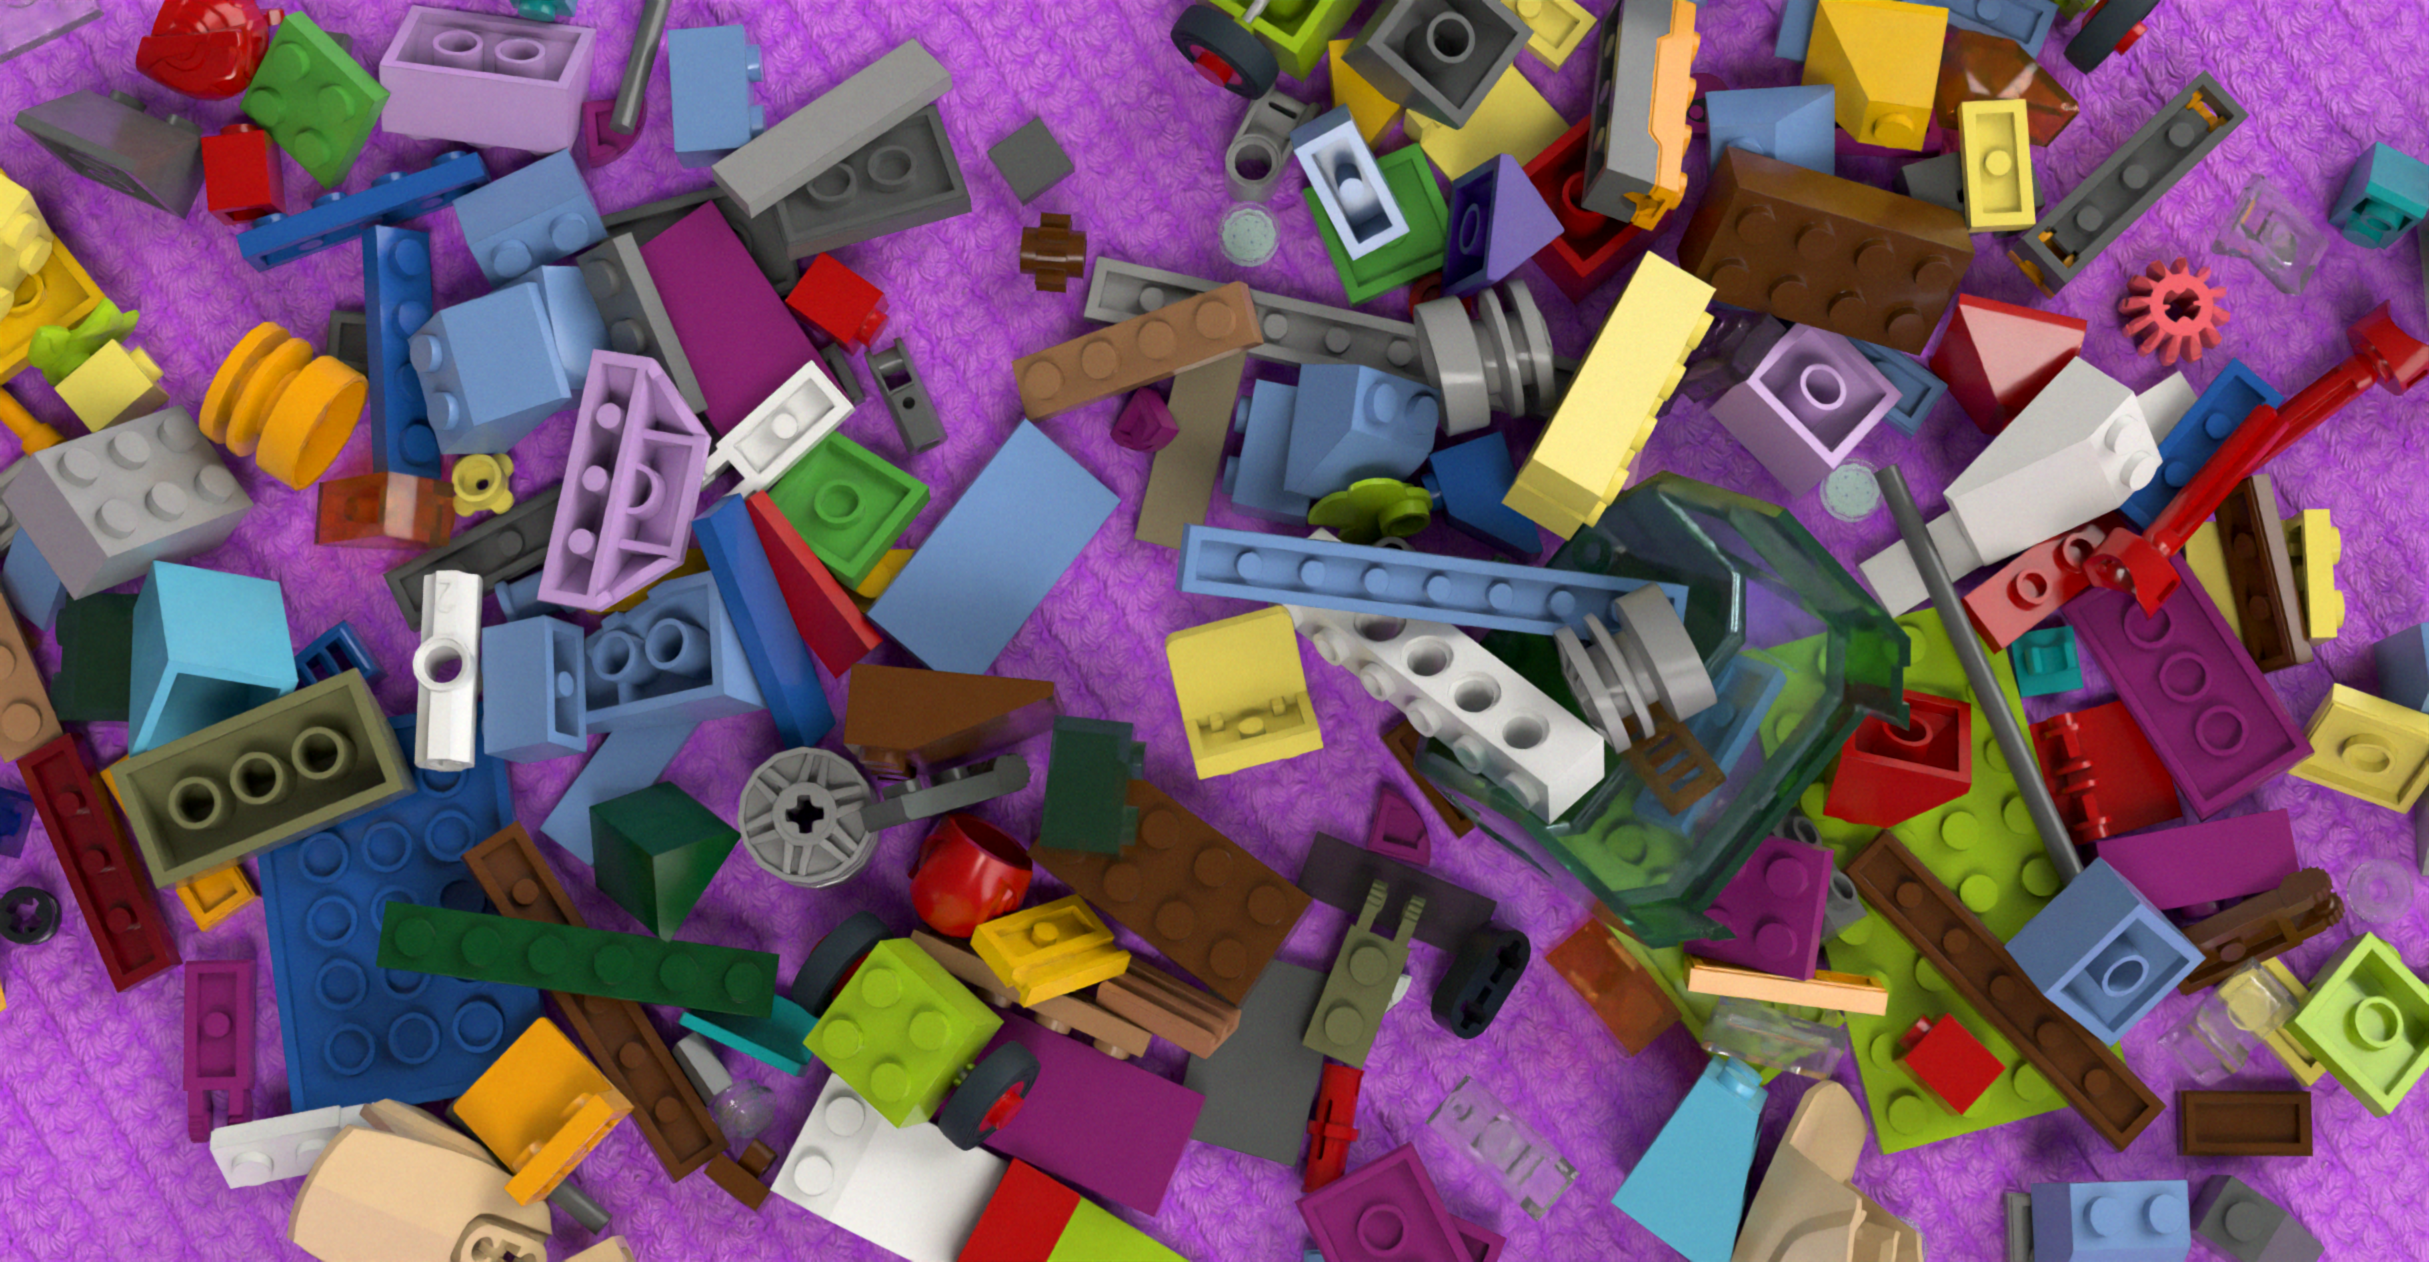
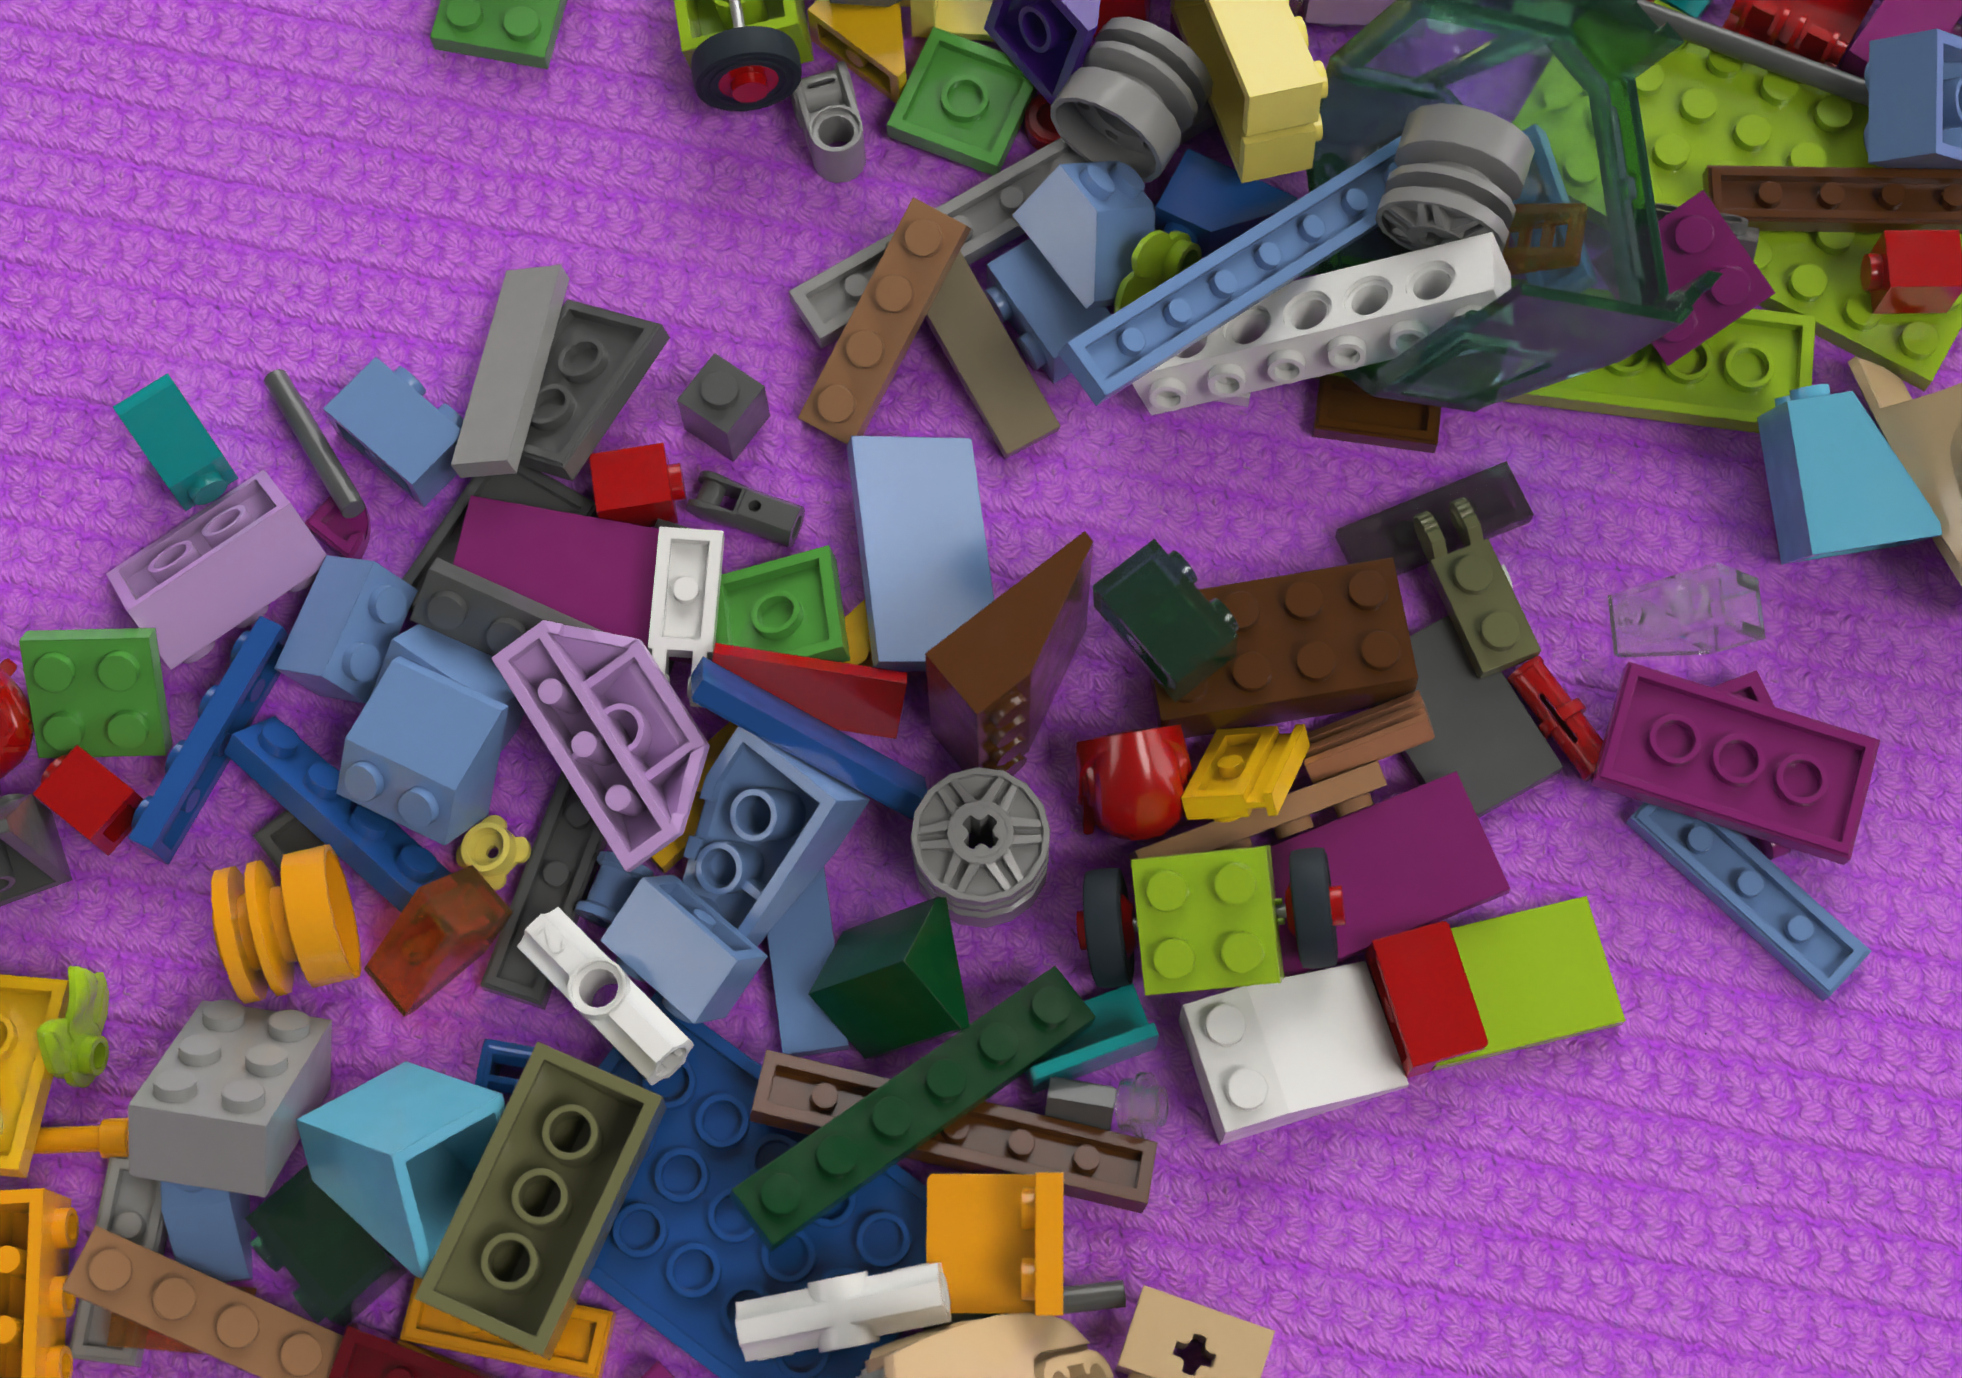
camera: 45 degrees left, 10 degrees down
(114, 387) = (132, 1039): light yellow brick -> none
(392, 1053) = (843, 1312): none -> white piece
(744, 1178) = (1190, 1156): reddish brown tile -> none
(949, 791) = (1061, 730): dark grey hinge -> none
(960, 303) = (724, 407): none -> dark grey brick
(1030, 161) = (674, 279): dark grey tile -> none
(1053, 252) = (755, 316): reddish brown gear -> none
(1145, 423) = (938, 369): magenta tile -> none
(1242, 692) = (1191, 479): light yellow bracket -> none
(1249, 233) = (876, 192): clear tile -> none
(1349, 181) = (921, 70): medium blue brick -> none
(1399, 831) = (1390, 479): magenta tile -> none
(1480, 979) = (1552, 519): black beam -> none
(1613, 988) = (1647, 441): clear orange slope -> none
(1775, 1038) = (1788, 360): clear plate -> none
(1825, 990) = (1757, 321): light orange tile -> none
(1896, 773) = (1686, 111): red slope -> none

